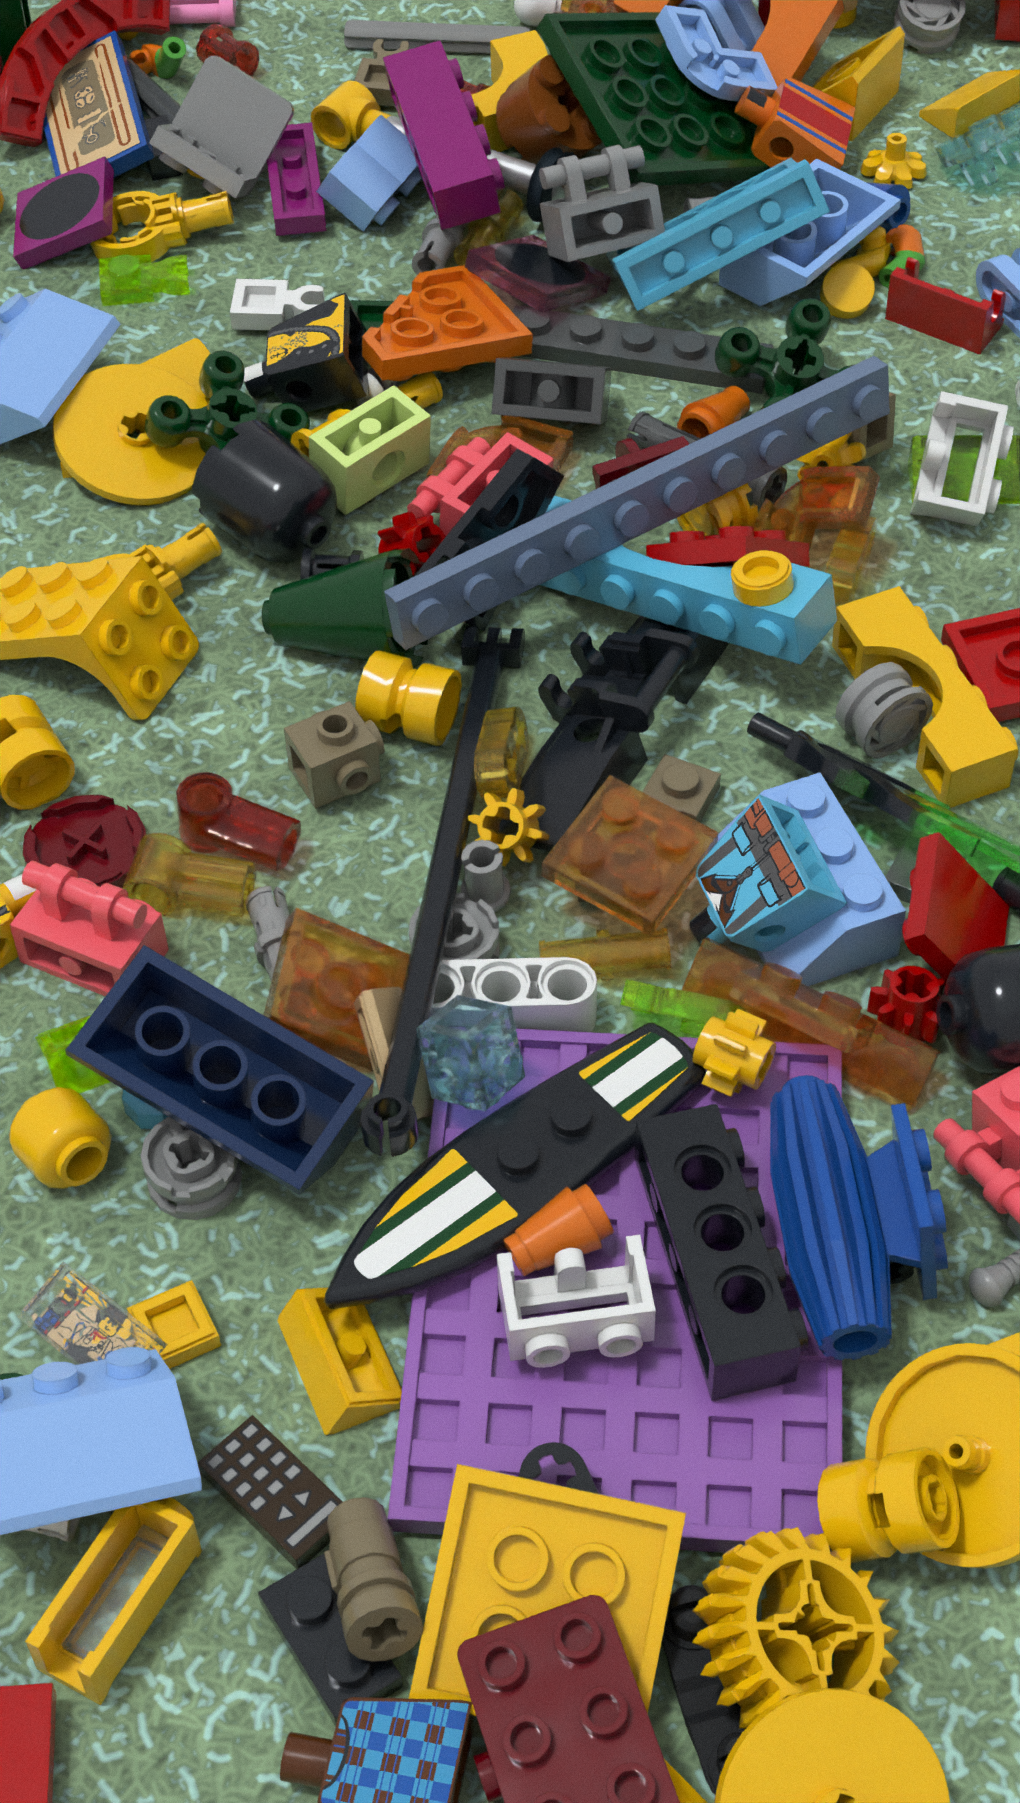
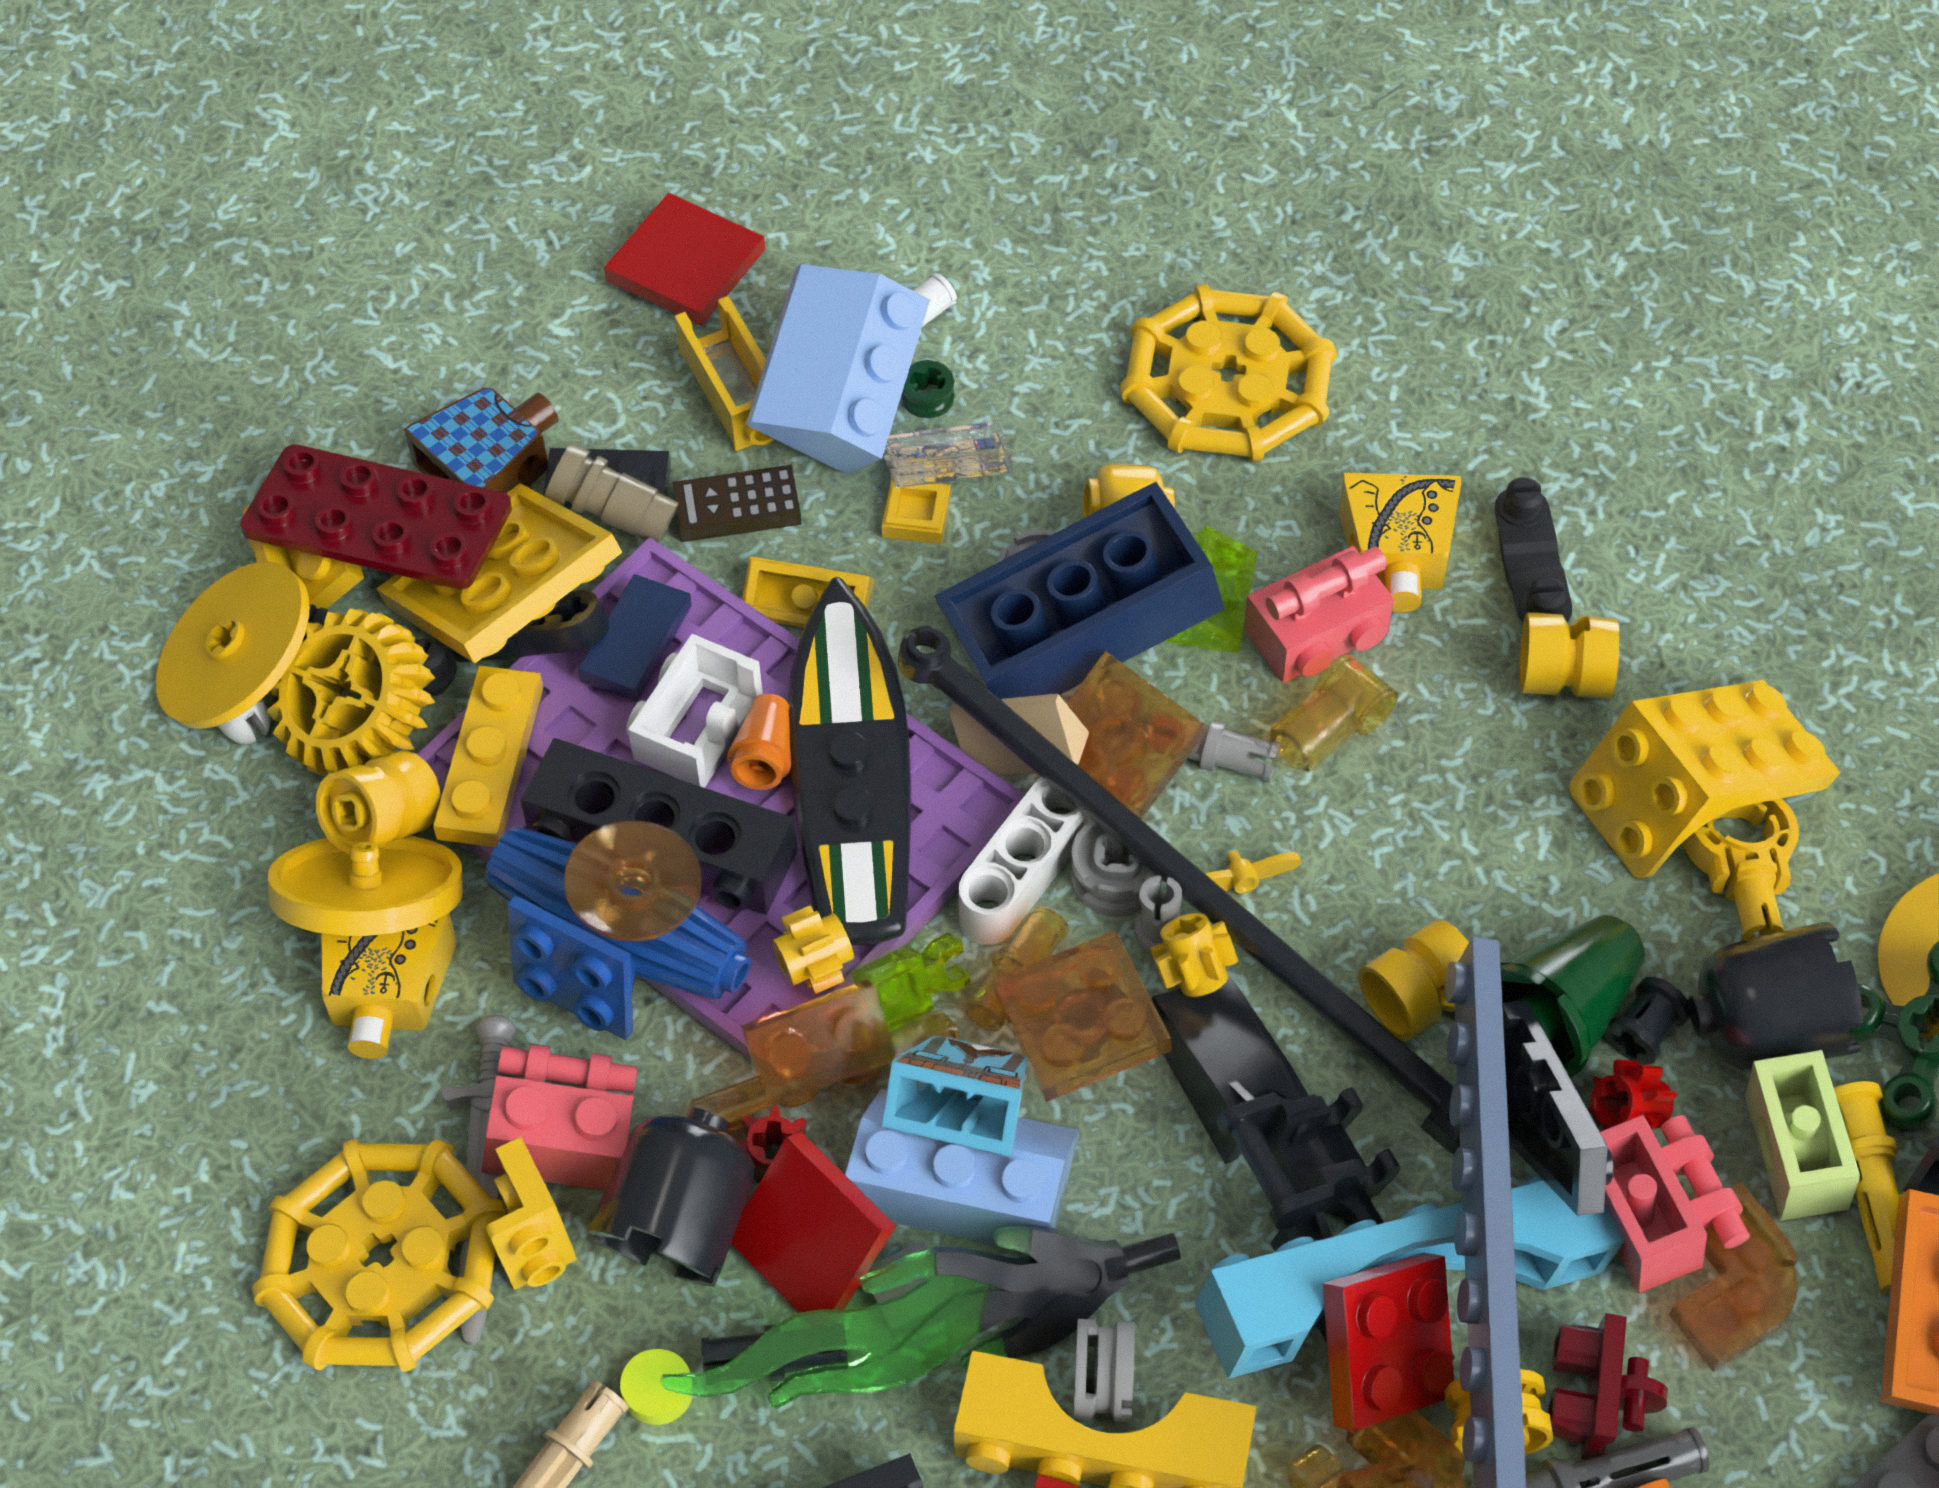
camera: 125 degrees right, 5 degrees up
(86, 836) = (1440, 672): dark red tile -> none
(216, 820) = (1367, 775): clear red piece -> none
(334, 754) = (1391, 879): dark tan brick -> none
(388, 868) = (1245, 876): none -> yellow piece
(471, 1052) = (954, 756): clear light blue brick -> none
(501, 751) = (1298, 1017): clear yellow beam -> none
(505, 1427) = (636, 637): none -> dark blue tile
(551, 390) = (1792, 1372): dark grey brick -> none
(683, 786) = (1151, 1148): dark tan plate -> none
(755, 1460) = (488, 756): none -> yellow plate
(762, 578) = (1285, 1278): yellow tile -> none
(818, 1125) = (637, 857): none -> clear orange dish

